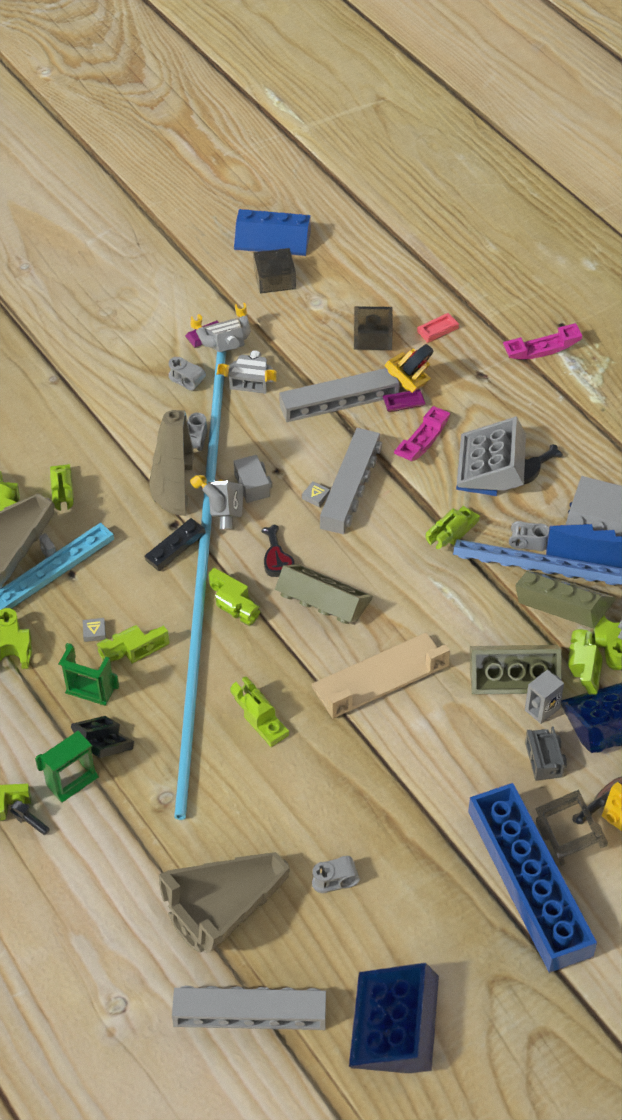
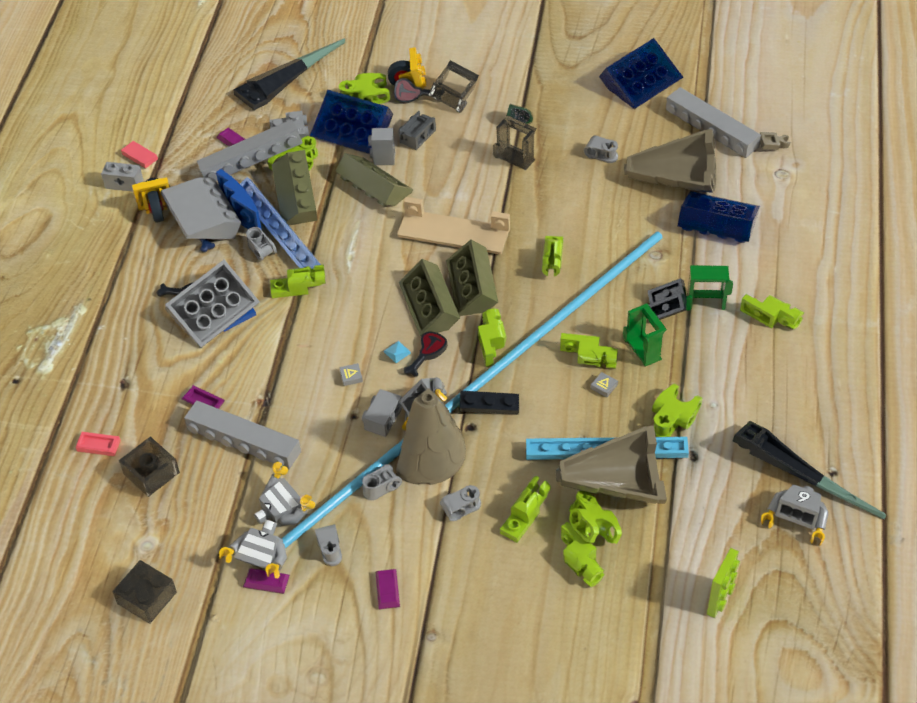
camera: 135 degrees left, 0 degrees up
(21, 812) = (756, 288): black bar -> none
(115, 382) = (387, 589): none -> magenta tile
(117, 460) = (460, 504): none -> light grey piece
(126, 882) = (718, 216): none -> clear blue slope
(159, 1034) = (771, 141): none -> dark tan plate
(272, 231) = (94, 640): blue slope -> none
(301, 536) = (397, 352): none -> medium azure slope
(305, 636) = (472, 279): none -> olive slope
(350, 481) = (318, 362): light grey brick -> none
(411, 367) = (173, 397): yellow plate -> none
(417, 806) = (504, 150): none -> clear smoke piece
(424, 436) = (231, 361): dark pink slope -> none
(466, 850) = (520, 113): none -> rock
(532, 878) = (500, 82): blue brick -> none
(543, 346) = (53, 368): dark pink slope -> none
(585, 660) = (330, 155): lime plate -> none

